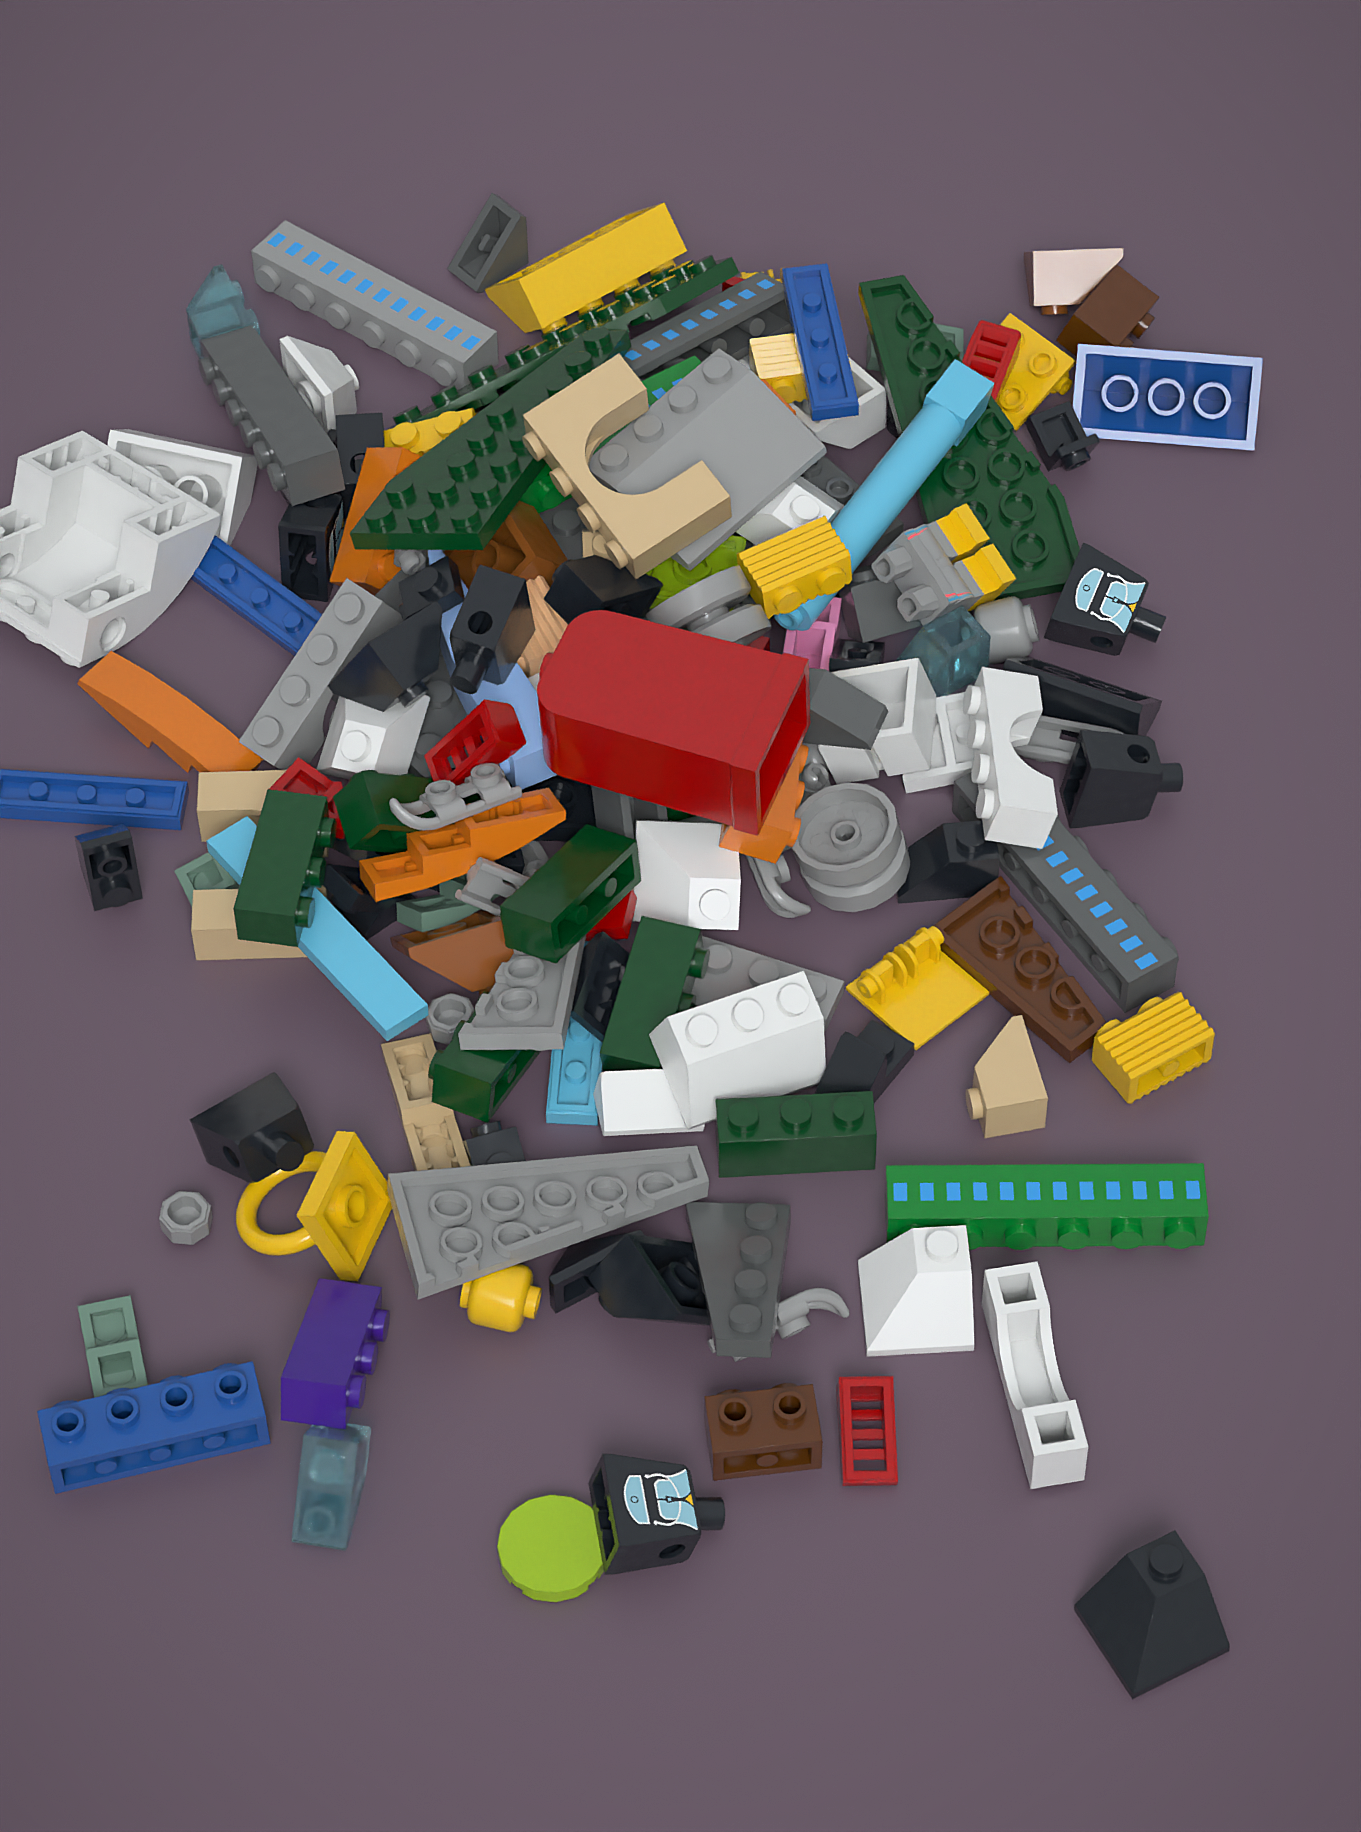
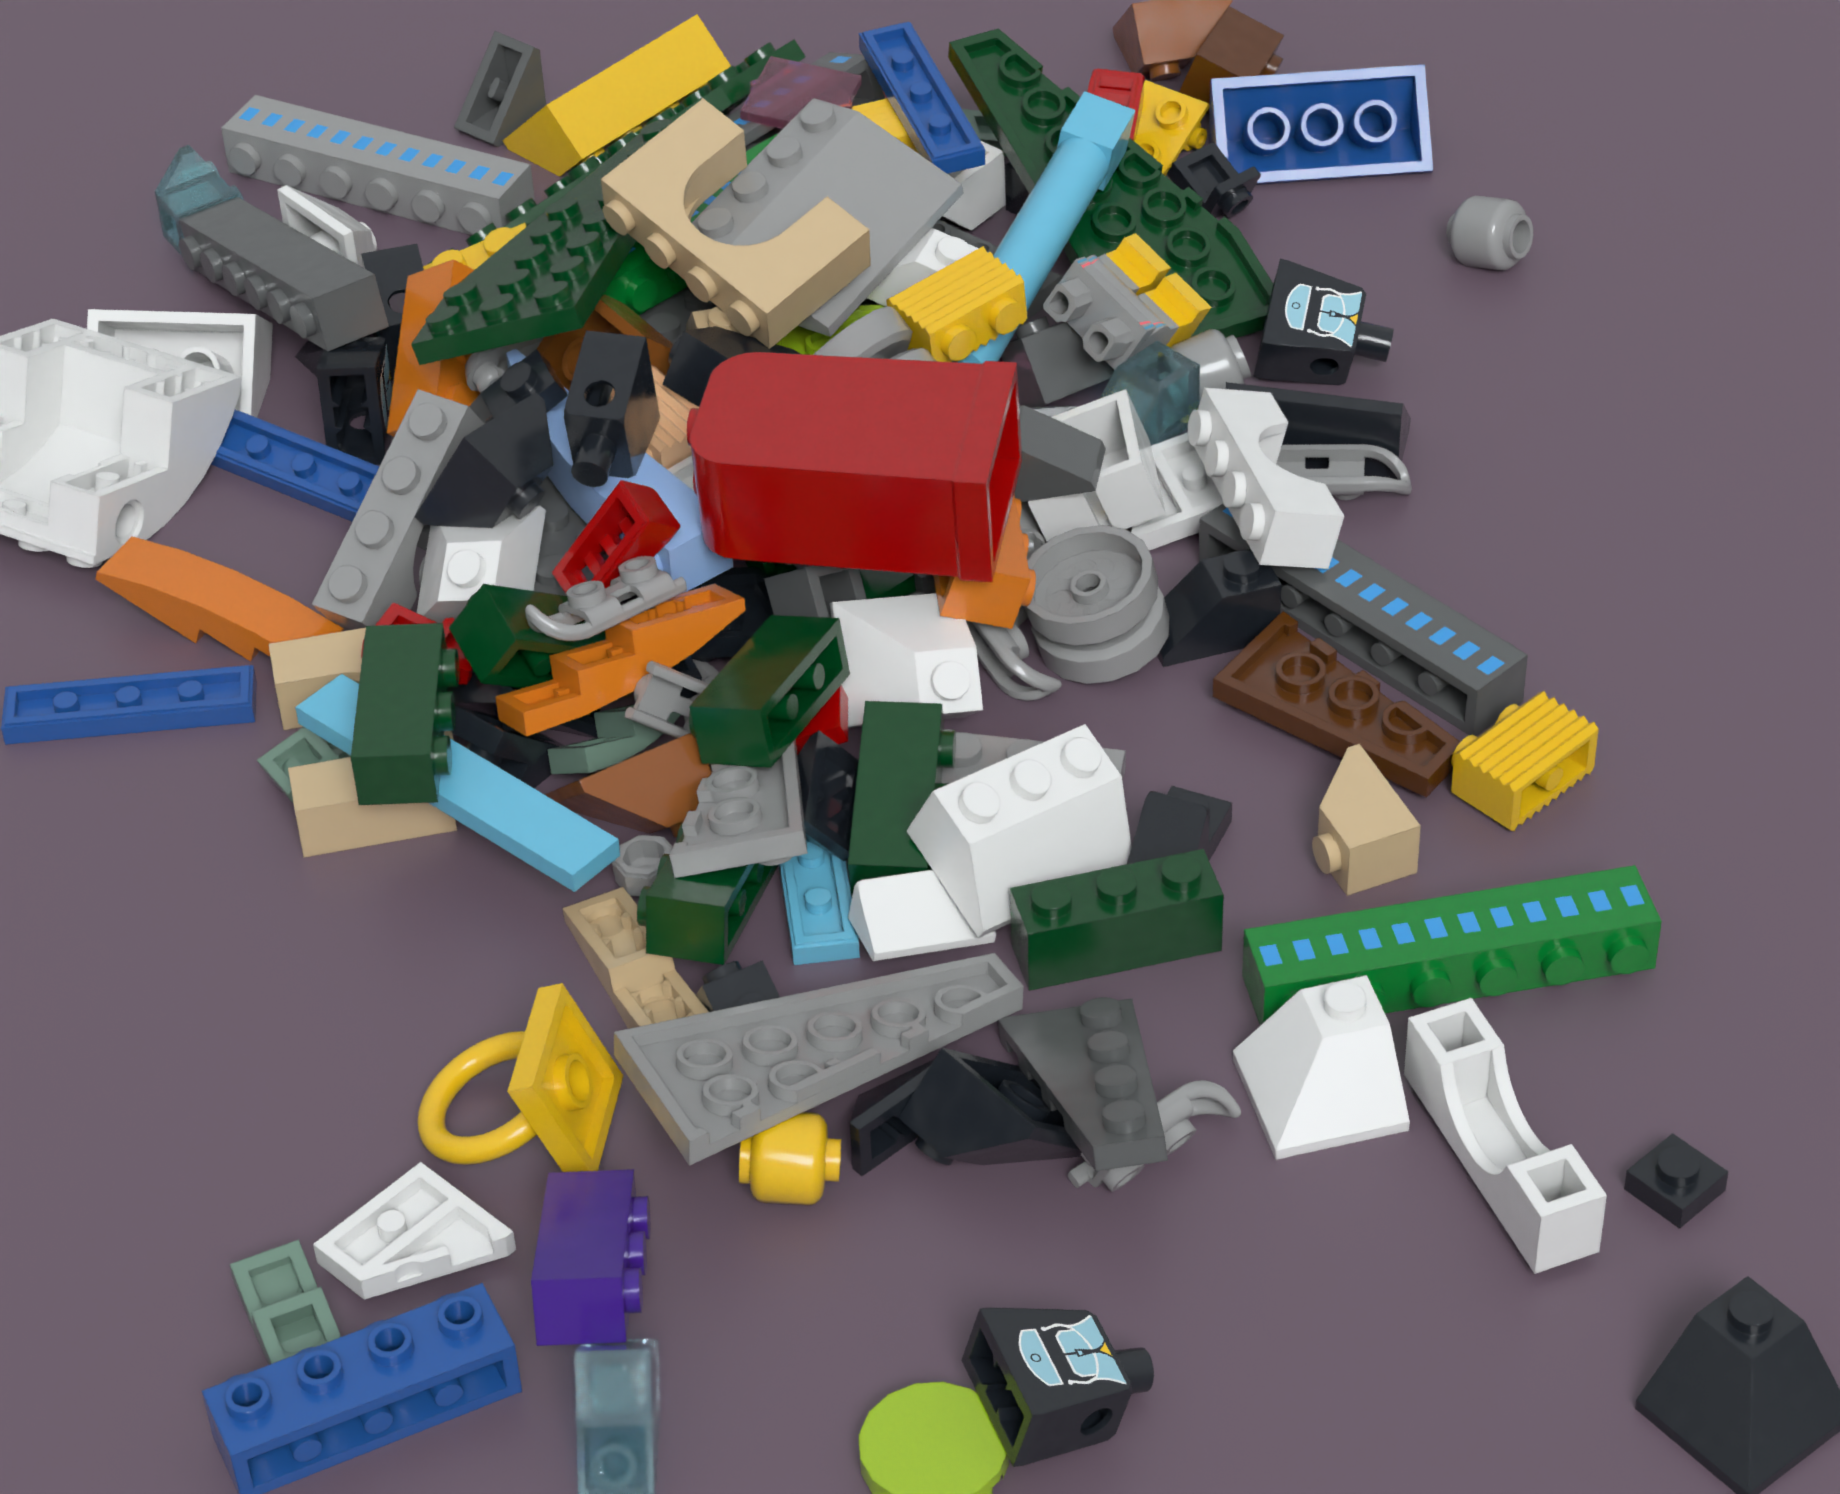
camera: 10 degrees left, 10 degrees down
(109, 866) = (173, 762): black slope -> none
(185, 1217) = (353, 1140): light grey tile -> none
(213, 1306) = (412, 1235): none -> white wing
(254, 1131) = (424, 1022): black torso -> none
(722, 321) = (790, 85): none -> clear pink piece
(763, 1431) = (1173, 1261): reddish brown brick -> none
(867, 1390) = (1294, 1191): red slope -> none
(917, 988) = (1216, 744): yellow hinge -> none
(1114, 779) = (1391, 489): black torso -> none
(1160, 1431) = (1676, 1180): none -> black plate
(1278, 529) = (1490, 233): none -> light grey head

